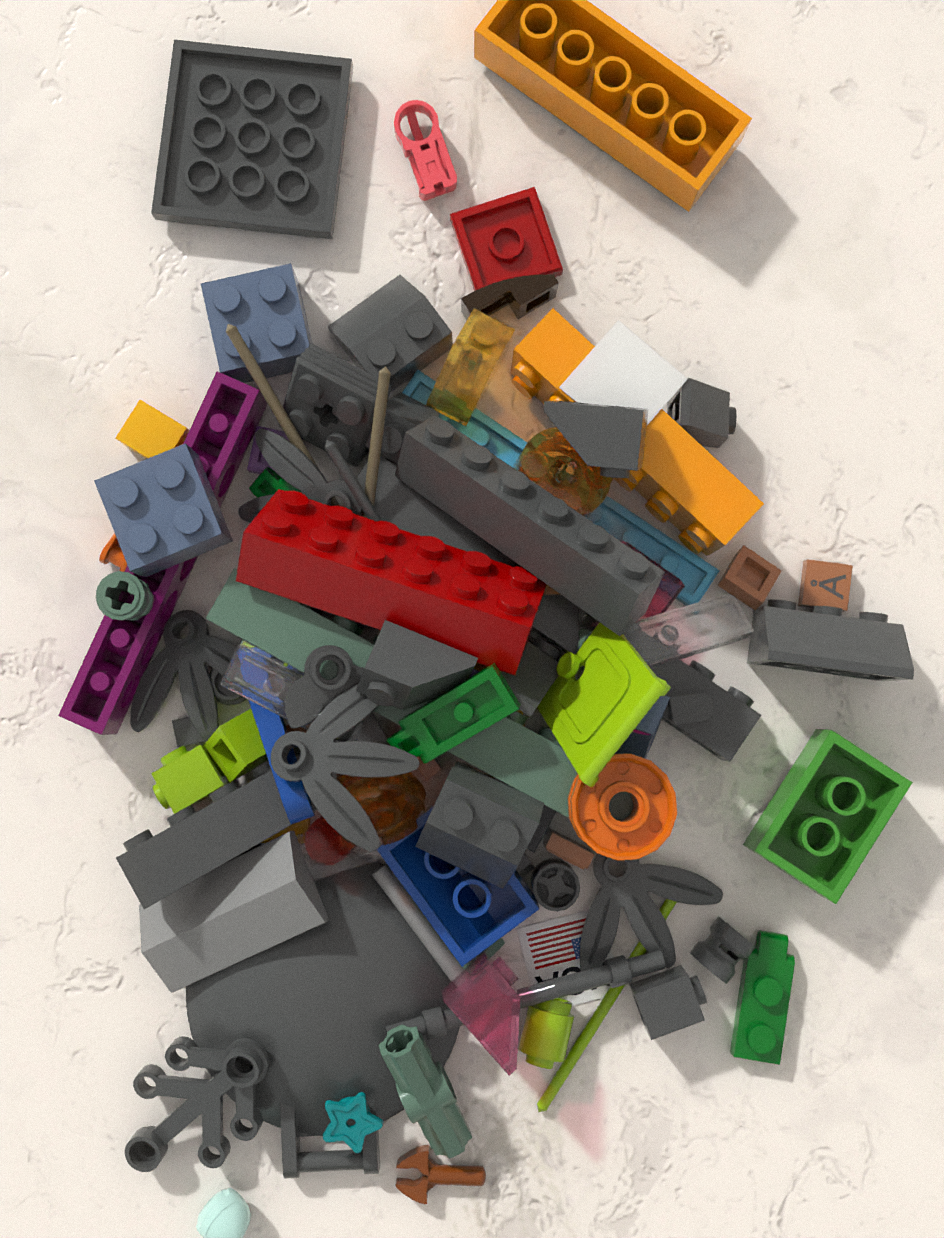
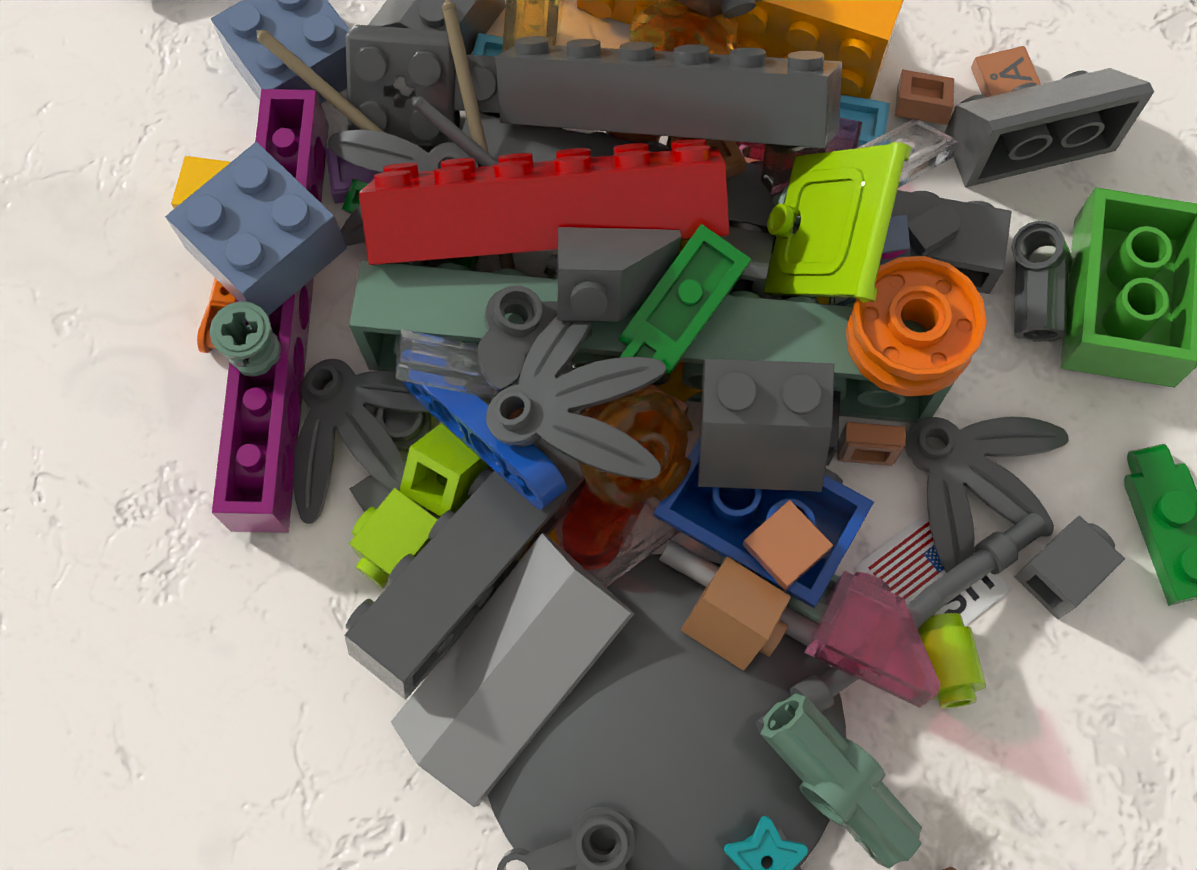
camera: 20 degrees left, 15 degrees down
(404, 948) = (738, 615): none -> medium nougat brick
(459, 918) = (787, 545): none -> nougat tile
(558, 891) = (880, 476): dark grey wheel -> none
(591, 1027) = (996, 648): lime axle -> none
(714, 957) = (1101, 483): dark grey wheel -> none
(755, 782) = (1041, 286): none -> dark grey piece

